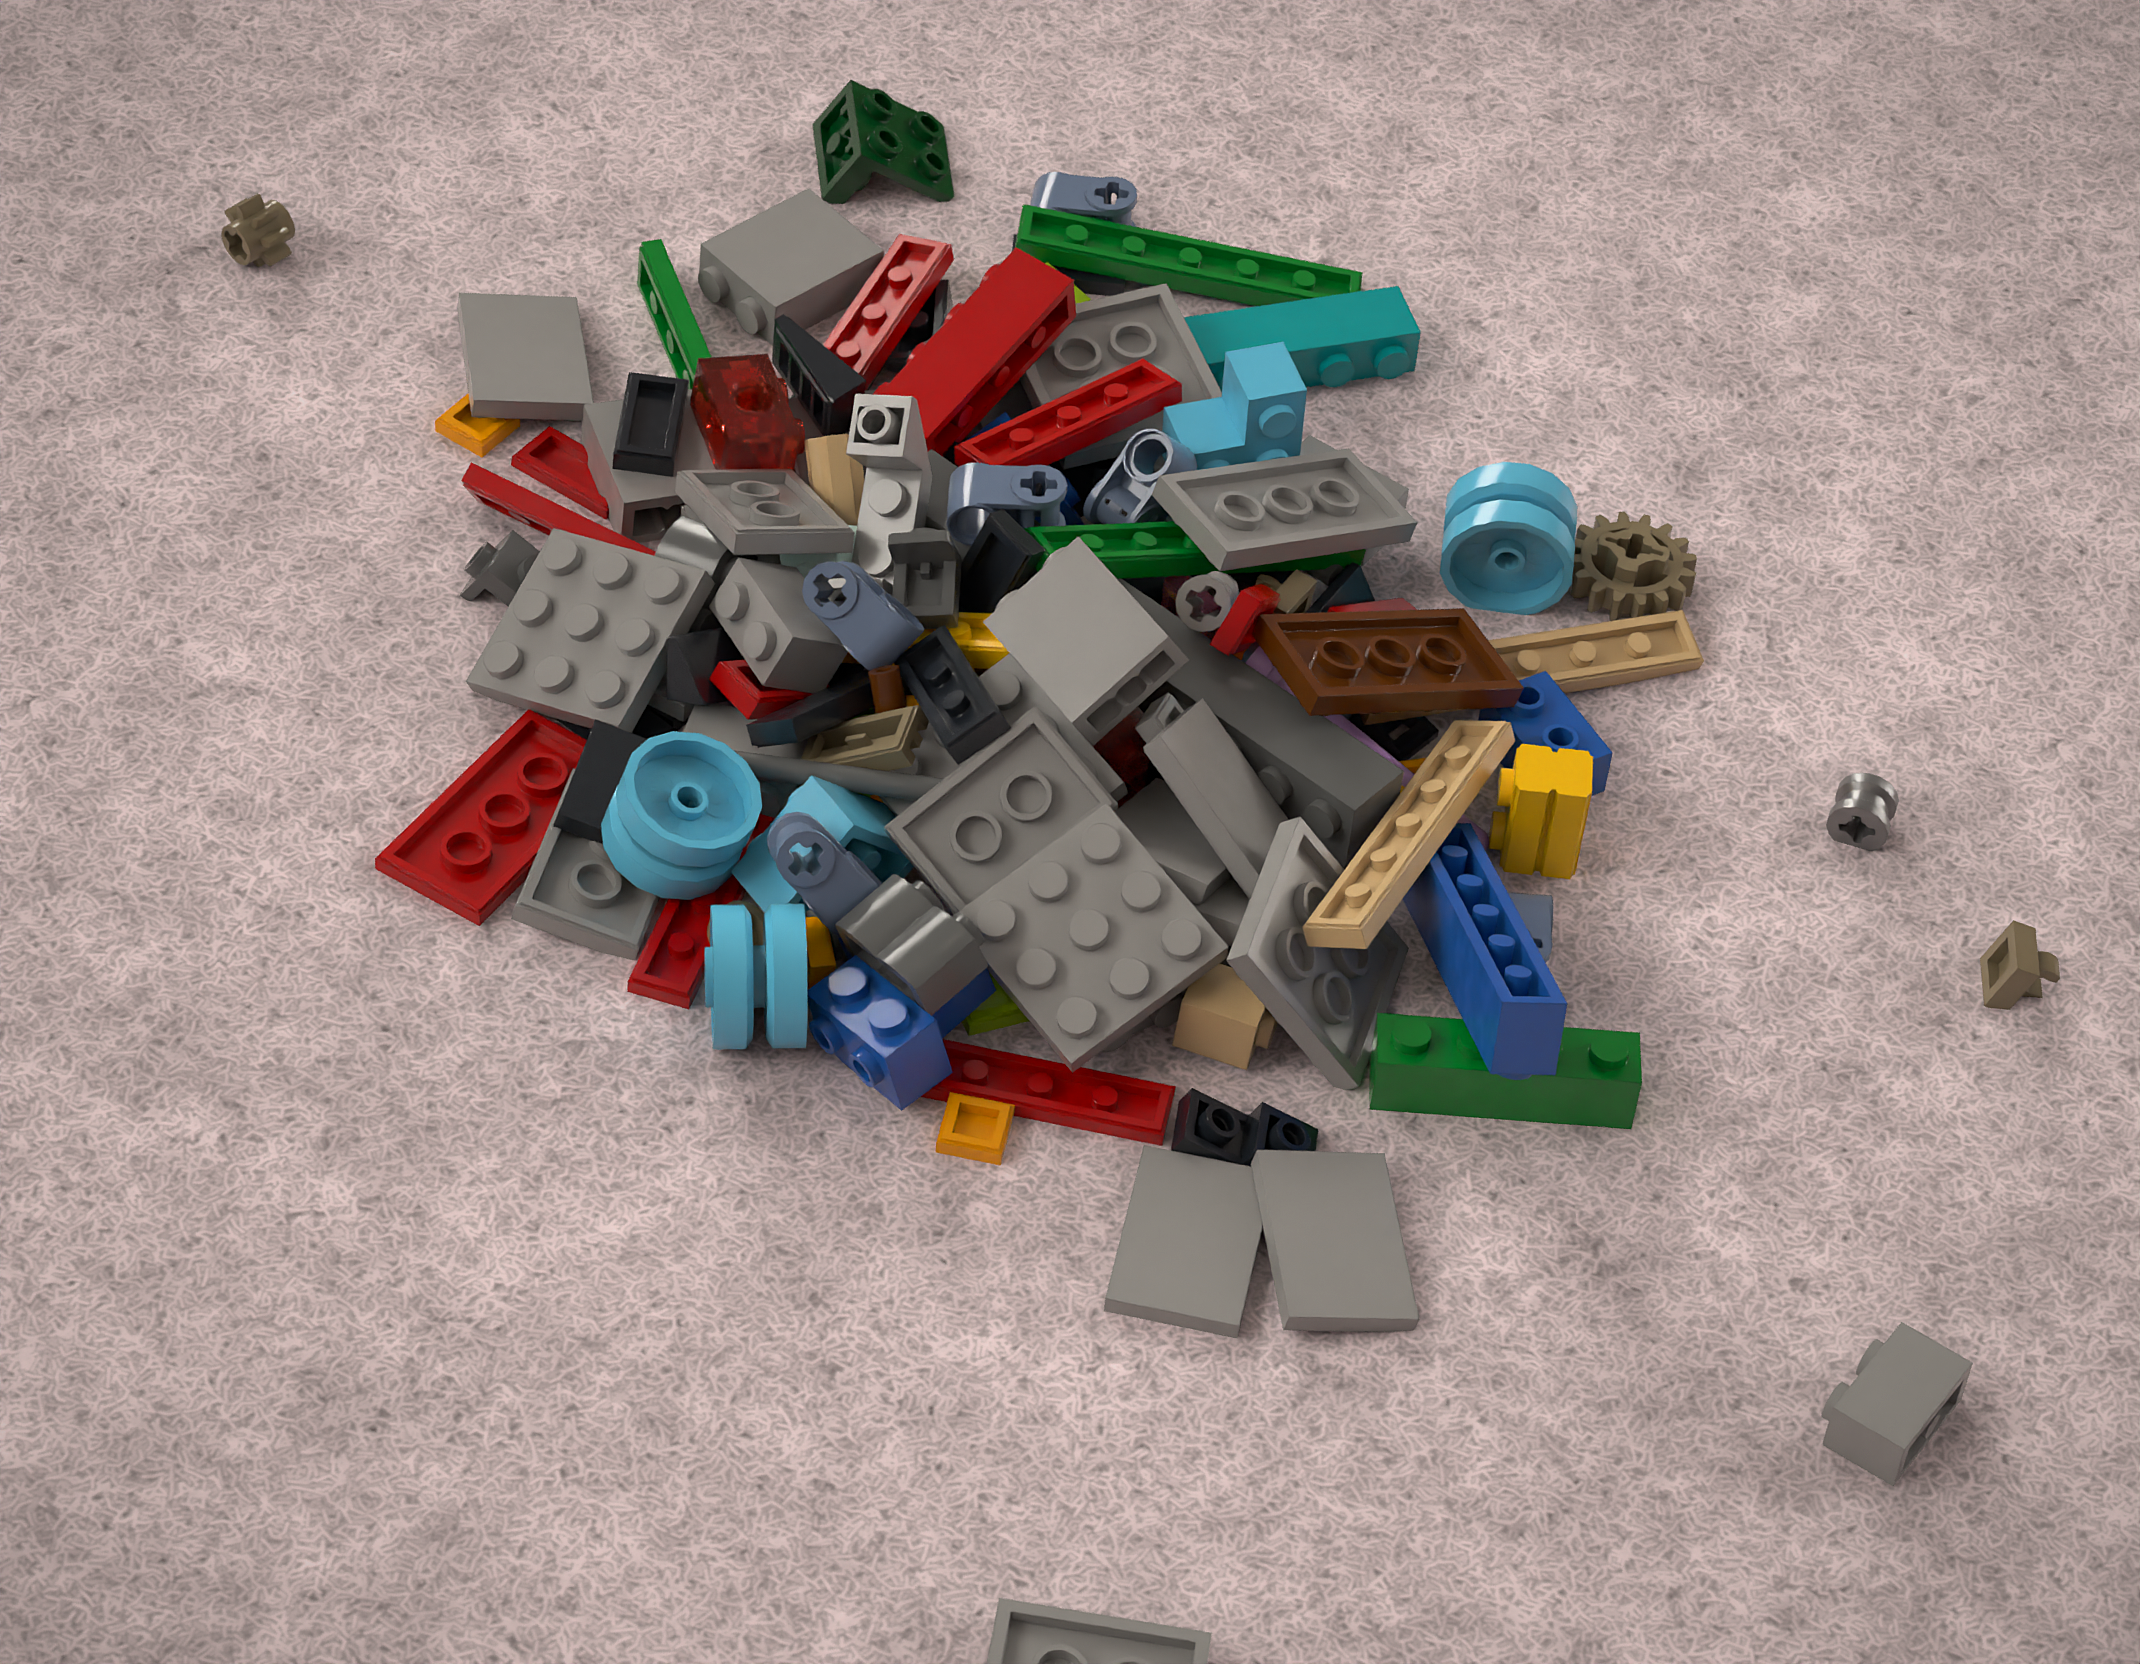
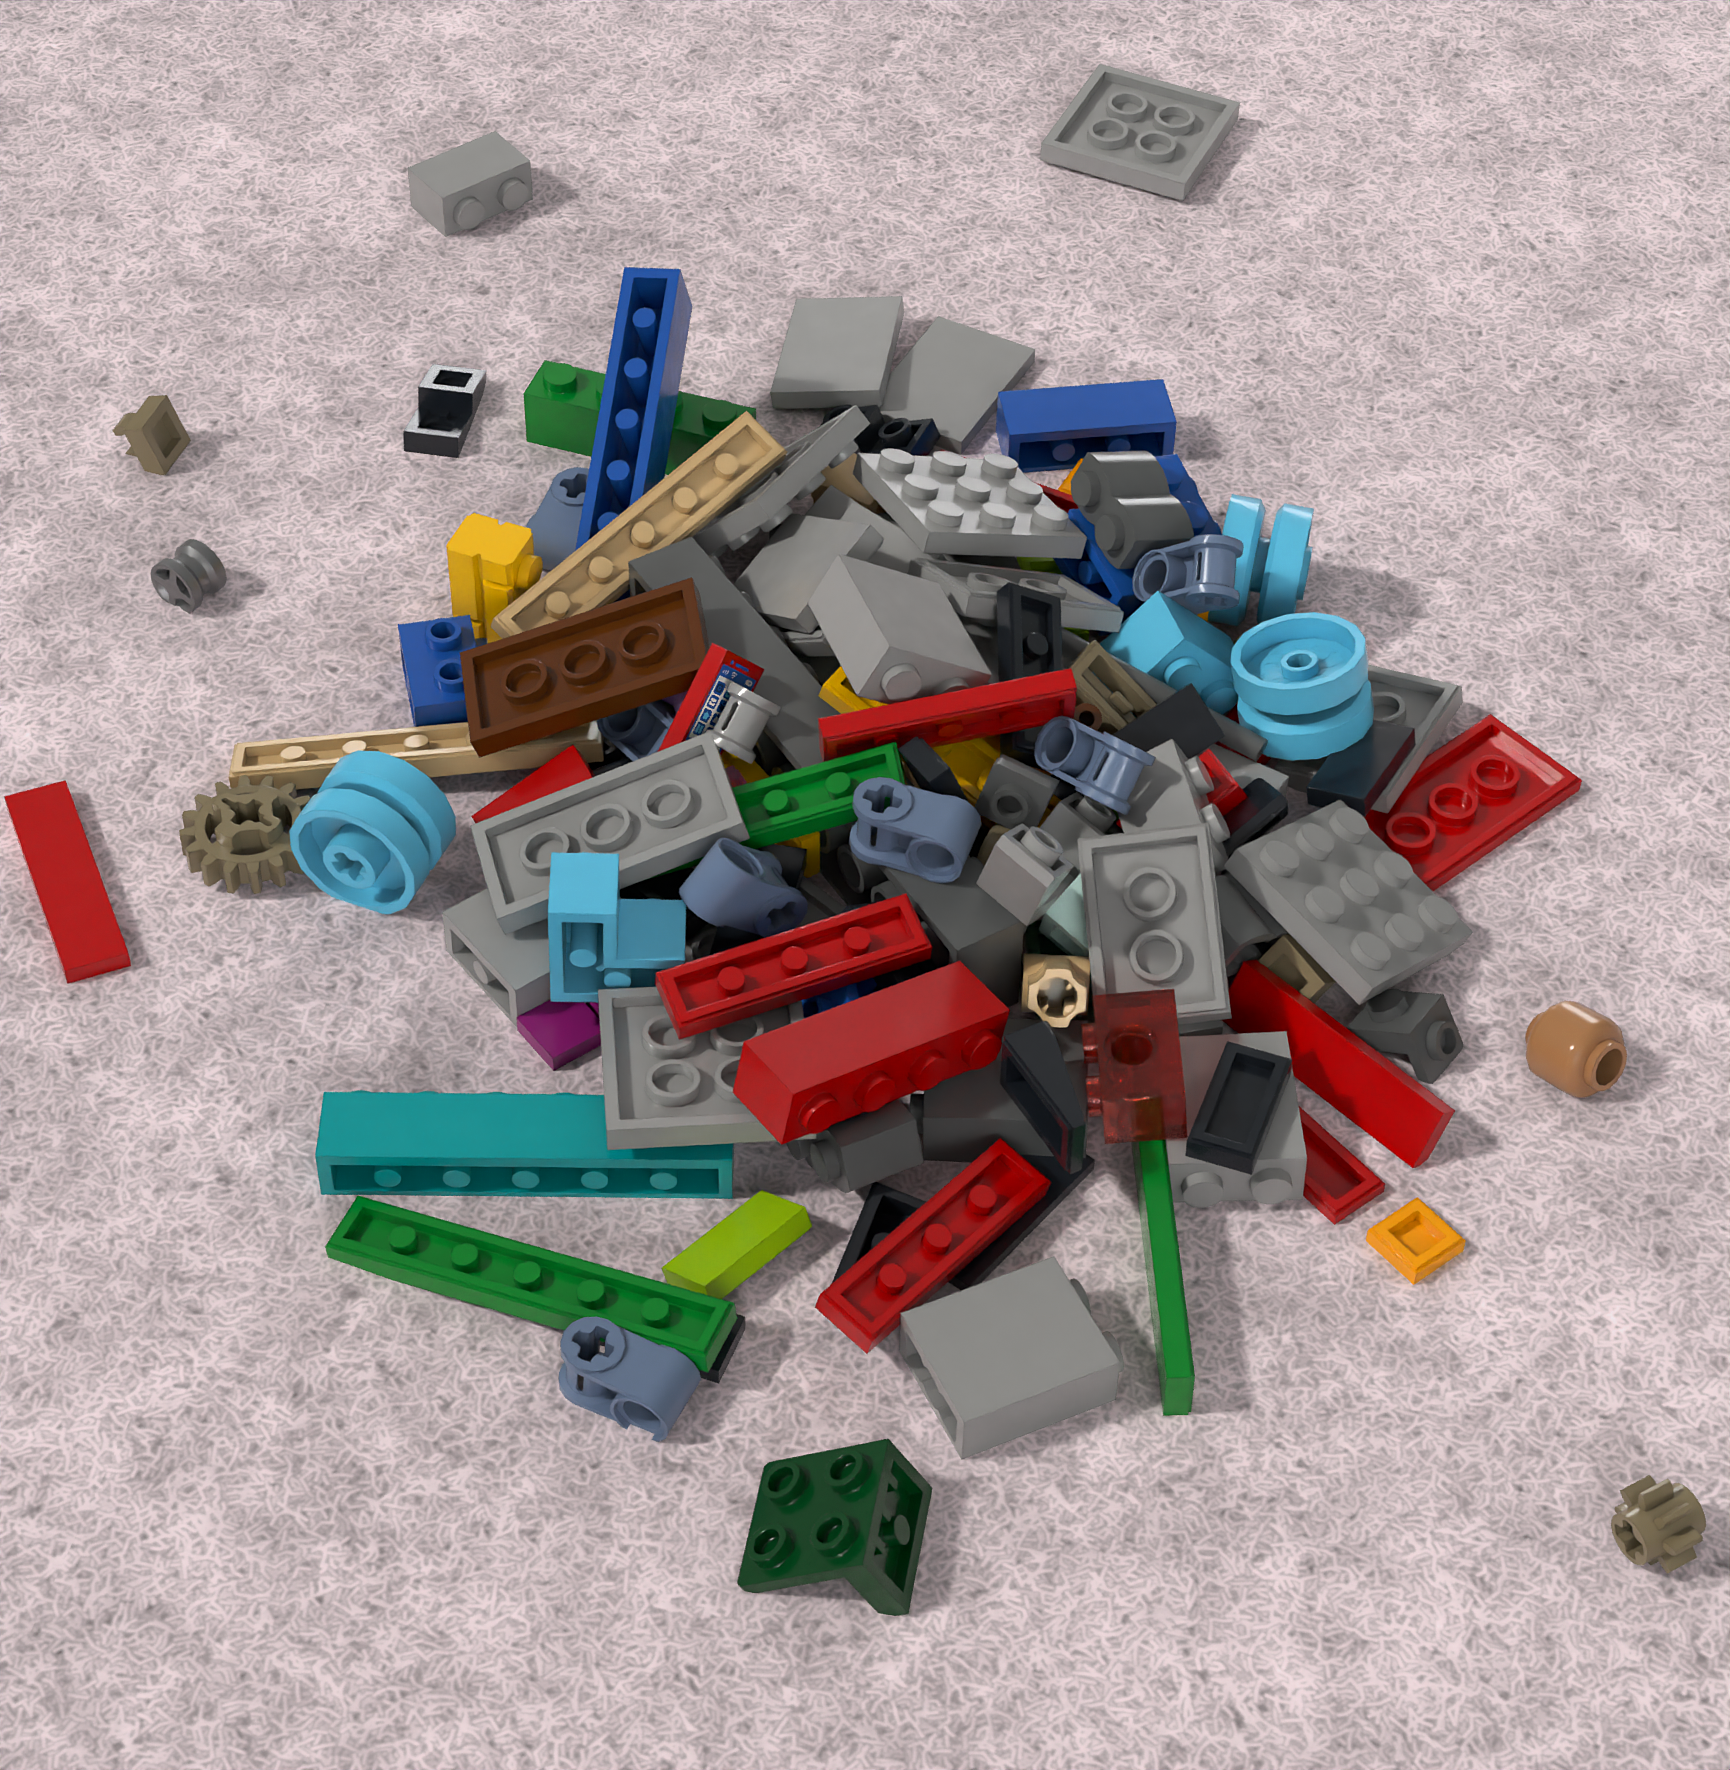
camera: 160 degrees left, 0 degrees up
(357, 575) = (1575, 1049): none -> medium nougat head
(524, 356) = (1351, 1297): light grey tile -> none
(957, 605) = (952, 715): none -> red tile
(1008, 1180) = (1061, 424): none -> blue brick
(1735, 1086) = (445, 410): none -> black slope
(1768, 520) = (67, 882): none -> red tile

